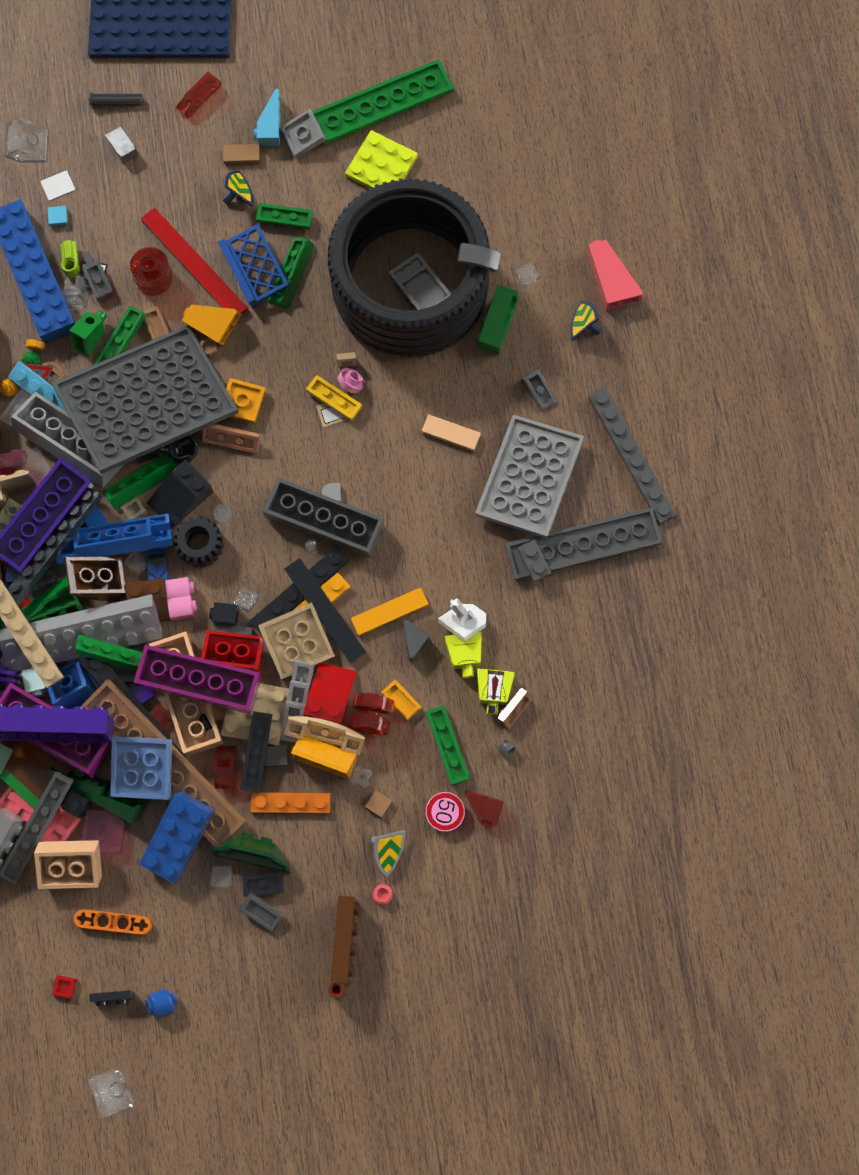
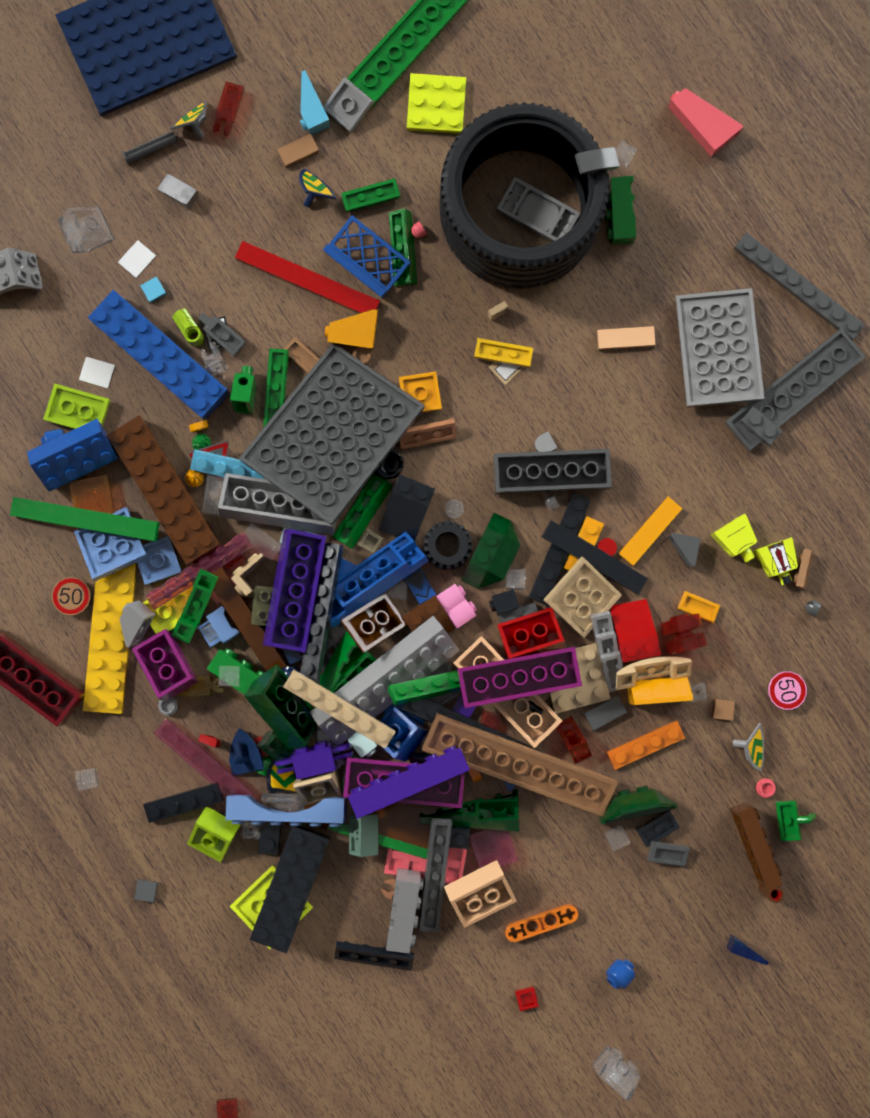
camera: 35 degrees left, 10 degrees up
(56, 369) = (232, 441): medium nougat piece -> none
(120, 997) = (568, 992): black plate -> none
(141, 767) = (505, 779): medium blue plate -> none
(151, 271) = (273, 305): clear red wheel -> none
(163, 94) = (194, 118): none -> dark grey shield
(177, 837) = (565, 824): blue brick -> none
(235, 566) = (492, 554): none -> dark green wedge
(256, 751) = (597, 715): black plate -> none
(284, 1032) = (739, 948): none -> clear blue slope
(312, 262) = (418, 230): none -> coral hinge
(344, 608) = (608, 546): none -> red tile
(351, 380) = (512, 329): bright pink plate -> none
(390, 933) = (790, 821): none -> green plate
(447, 745) = (760, 629): green plate -> none
(463, 619) = (723, 510): white piece -> none
(485, 808) = (820, 671): clear red slope -> none
(539, 390) = (686, 260): flat silver slope -> none
(584, 319) = (698, 175): shield -> none

